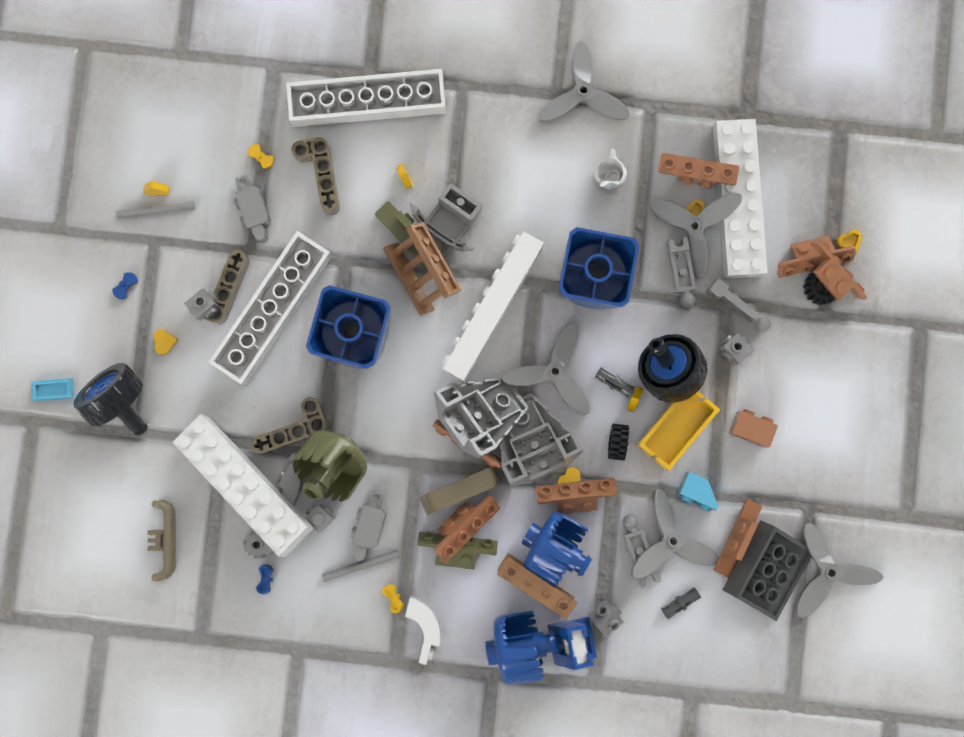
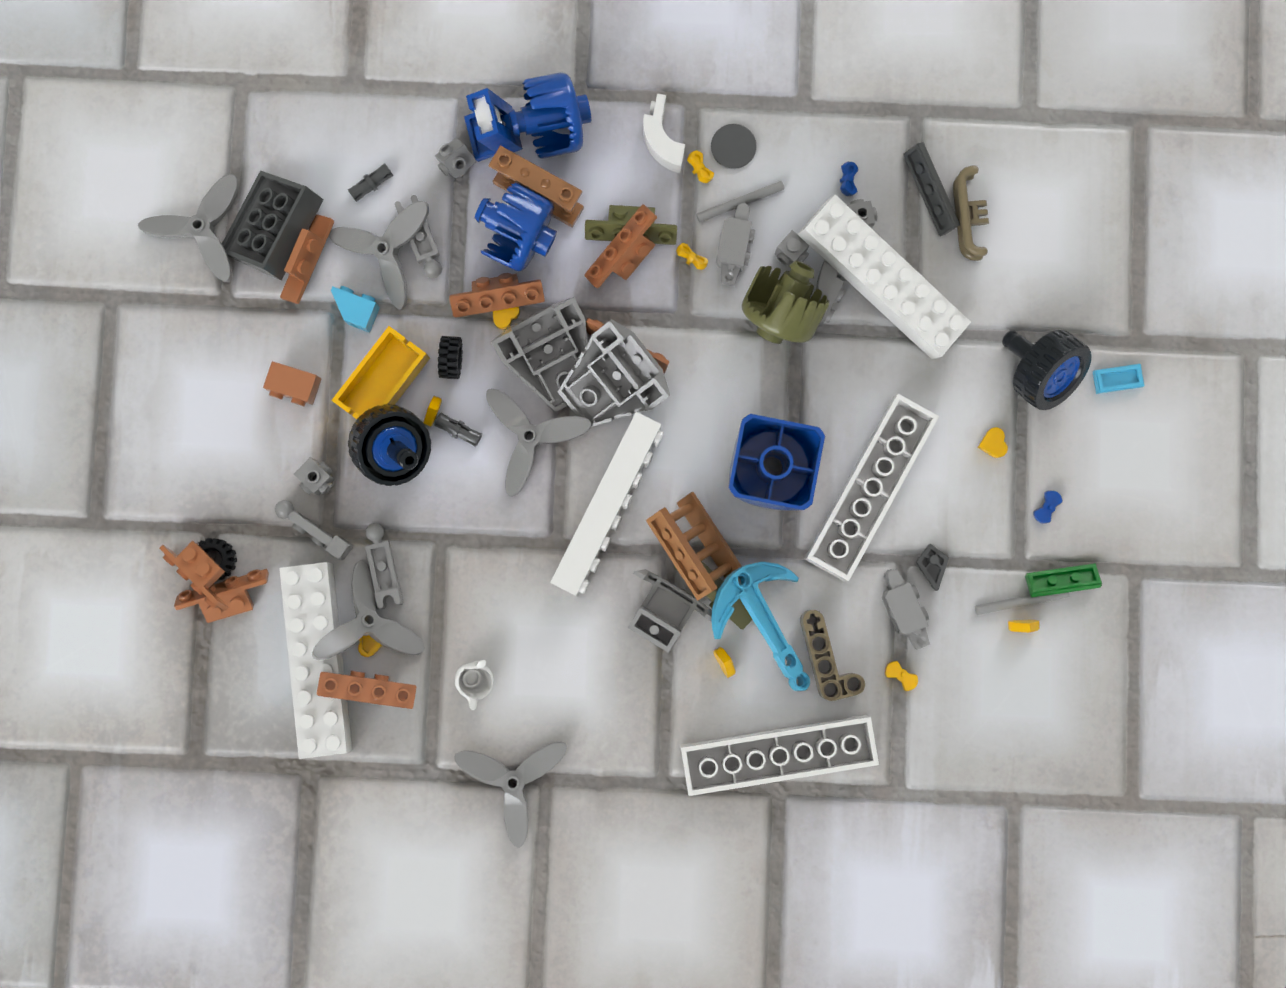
camera: 175 degrees right, 0 degrees up
(119, 224) = (1063, 580): none -> green tile
(194, 564) = (931, 189): none -> dark grey tile
(202, 304) = (952, 483): light grey brick -> none
(225, 242) = (933, 565): none -> dark grey piece
(232, 288) = (930, 513): dark tan beam -> none
(288, 431) = (837, 346): dark tan beam -> none
(362, 616) = (733, 146): none -> dark grey piece
(376, 219) = (759, 611): none -> medium azure piece
(412, 523) = (685, 251): none -> yellow piece
(460, 490) = (633, 288): dark tan beam -> none
(611, 253) = (461, 538): blue piece -> none
(852, 238) = (181, 618): yellow tile -> none

